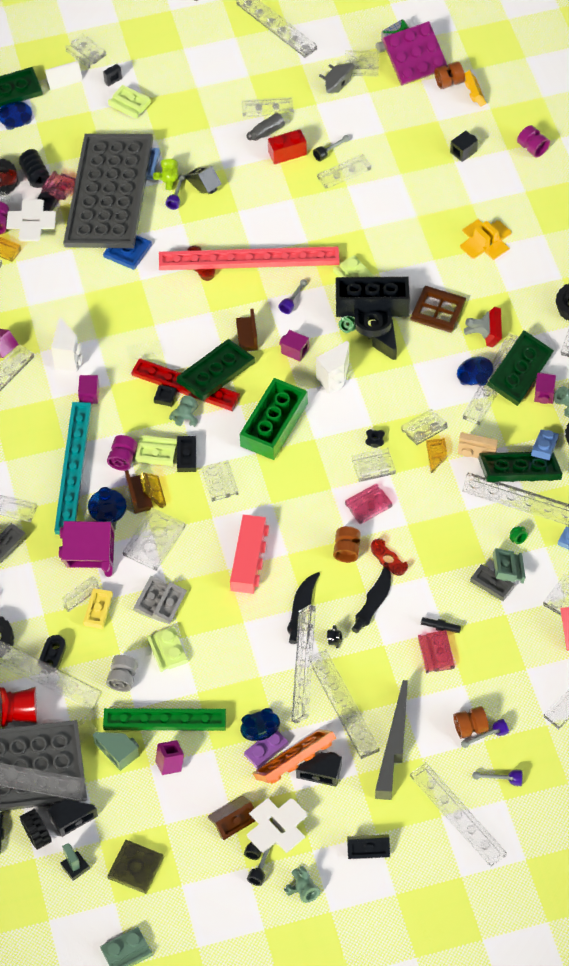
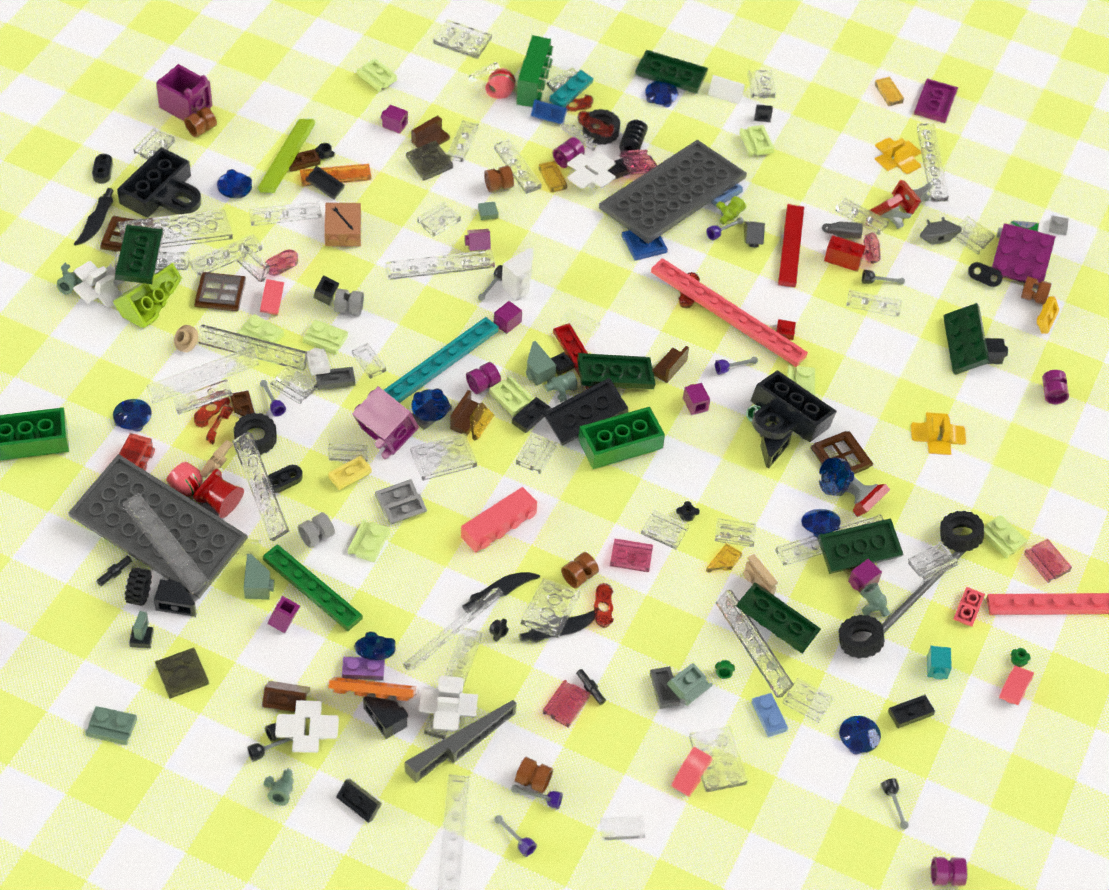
camera: 35 degrees right, 5 degrees down
(45, 358) = (498, 277): none -> hinge
(152, 409) = (539, 365): none -> sand green slope
(227, 419) = (587, 407): none -> black hinge
(239, 169) = (791, 245): none -> red tile
(252, 37) = (901, 151): none -> yellow piece
(287, 86) = (890, 210): none -> piece
(289, 66) = (911, 197): none -> red piece
(297, 123) = (872, 249): none -> clear pink plate
(302, 239) = (786, 328): none -> red plate
(333, 367) = (708, 435): white slope -> none
(354, 590) = (550, 607): none -> clear plate
(363, 720) = (448, 703): none -> white piece
(401, 88) = (985, 274): none -> black plate
(412, 10) = (1058, 225): none -> light grey plate
(438, 150) = (966, 338): none -> dark green plate
(461, 321) = (843, 476): none -> clear blue plate
(545, 444) = (818, 618): medium blue plate -> none

